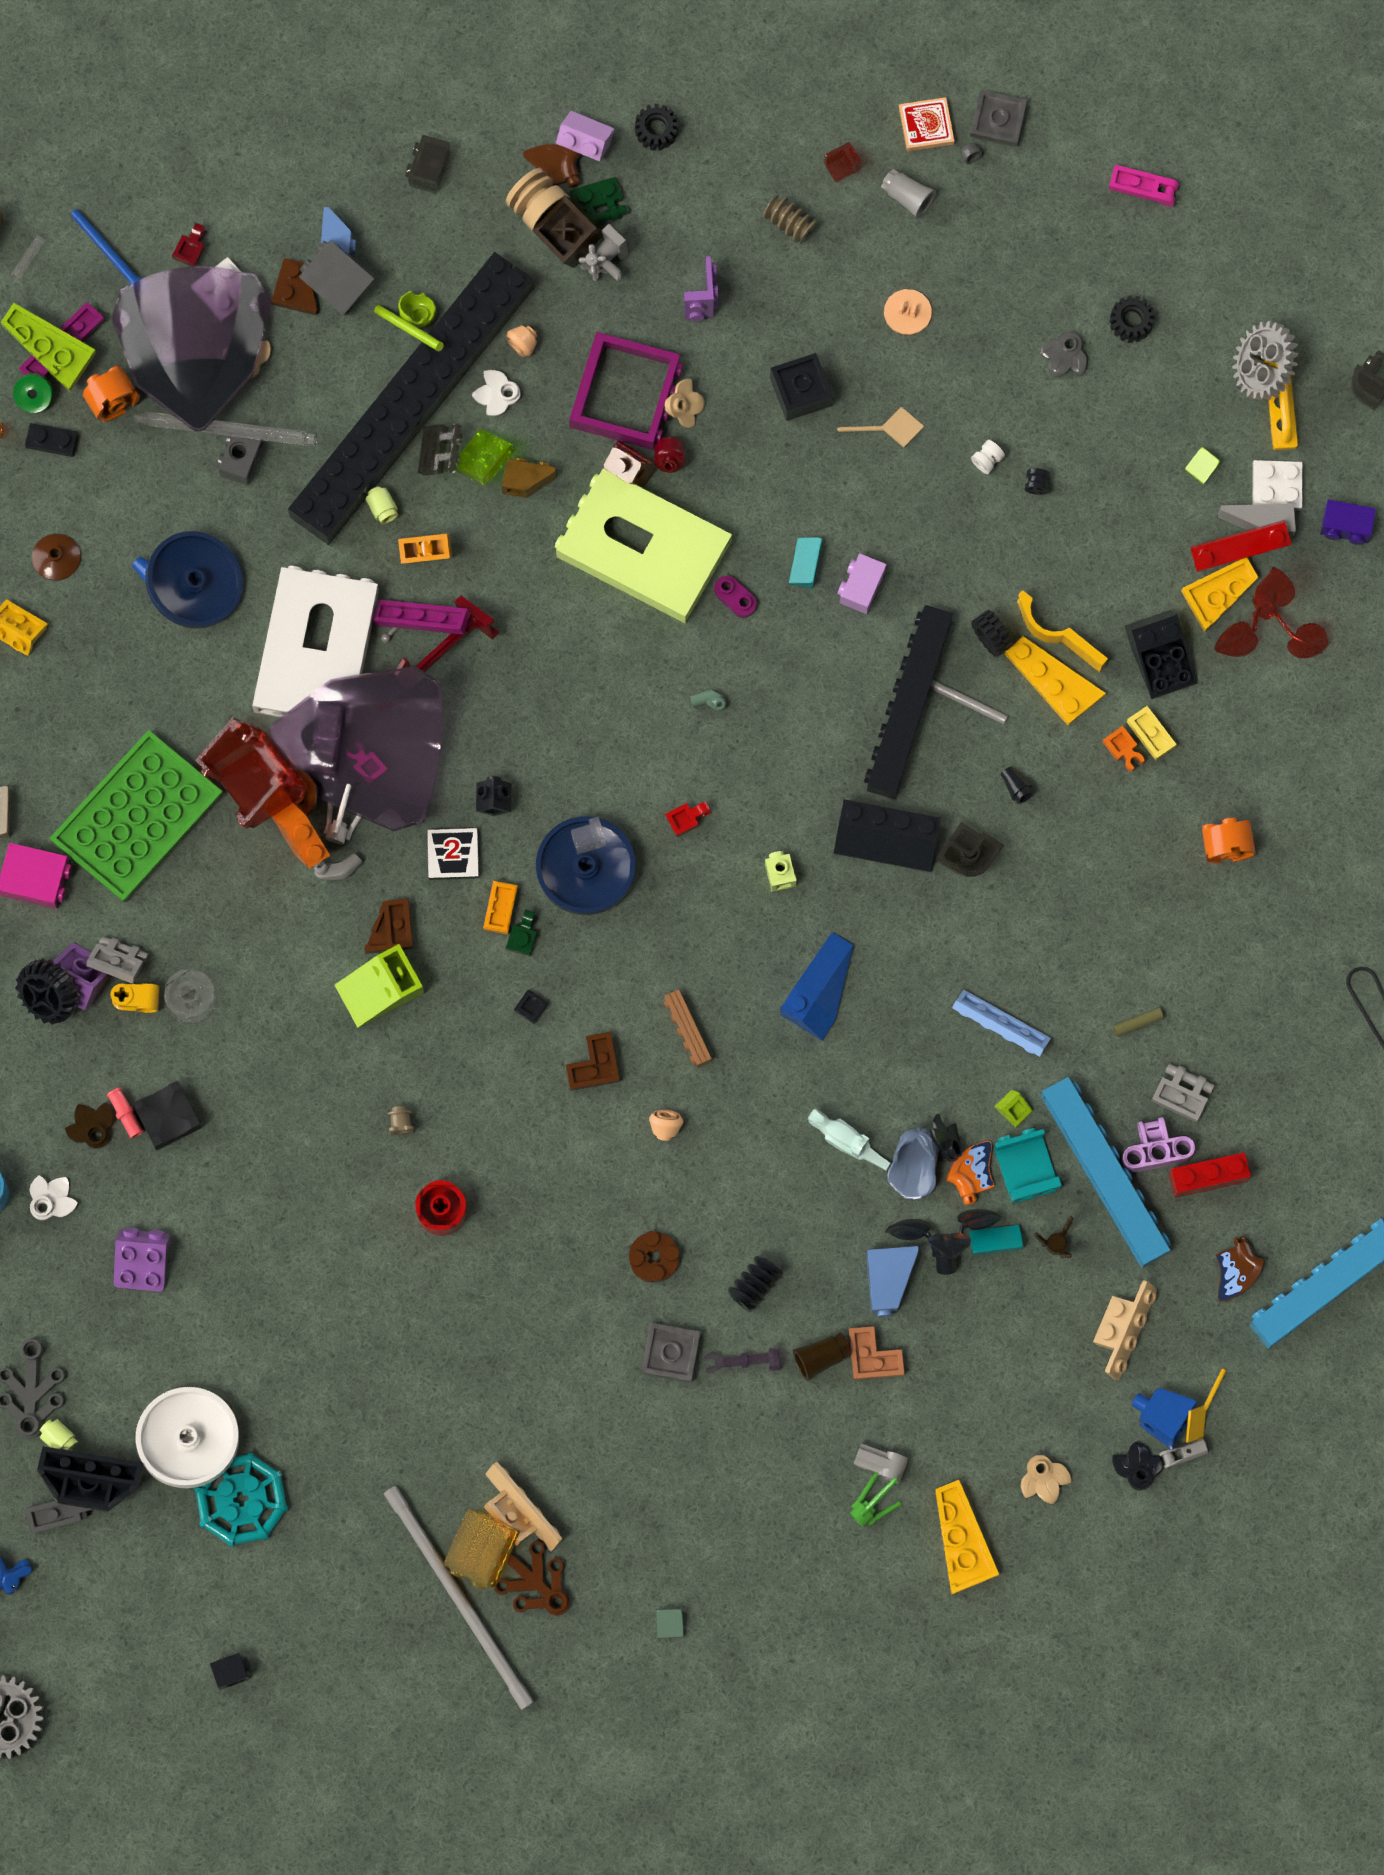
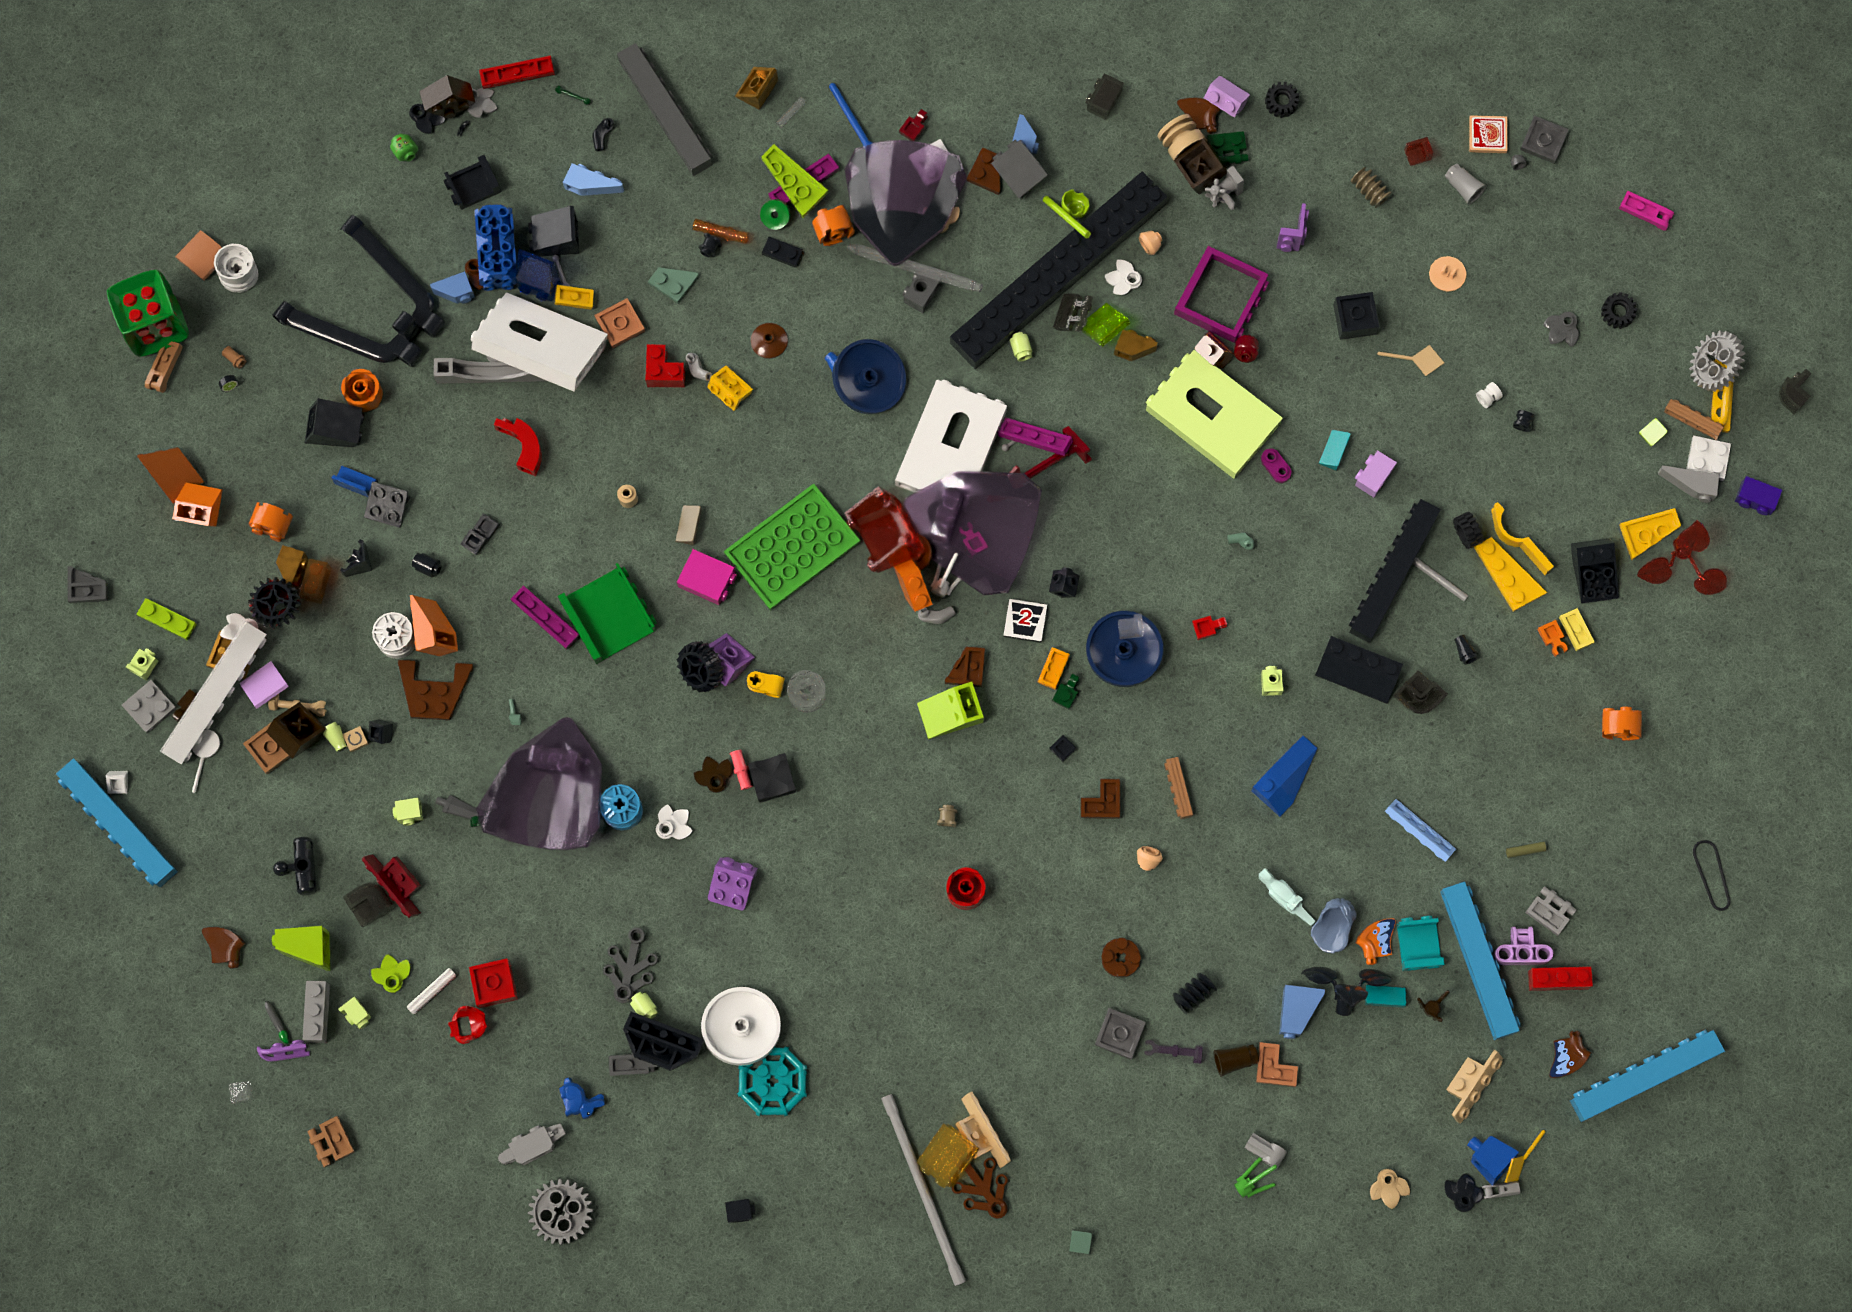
camera: 15 degrees right, 0 degrees up
(117, 959) = (757, 652): light grey plate -> none
(425, 548) = (1047, 385): light orange brick -> none
(684, 403) = (1265, 312): tan plate -> none
(947, 1139) = (1362, 911): black plate -> none
(964, 1545) = (1318, 1227): yellow wing -> none
(1014, 1108) = (1418, 897): lime slope -> none
(1240, 545) = (1672, 499): red plate -> none
(1250, 439) = (1694, 419): none -> medium nougat piece

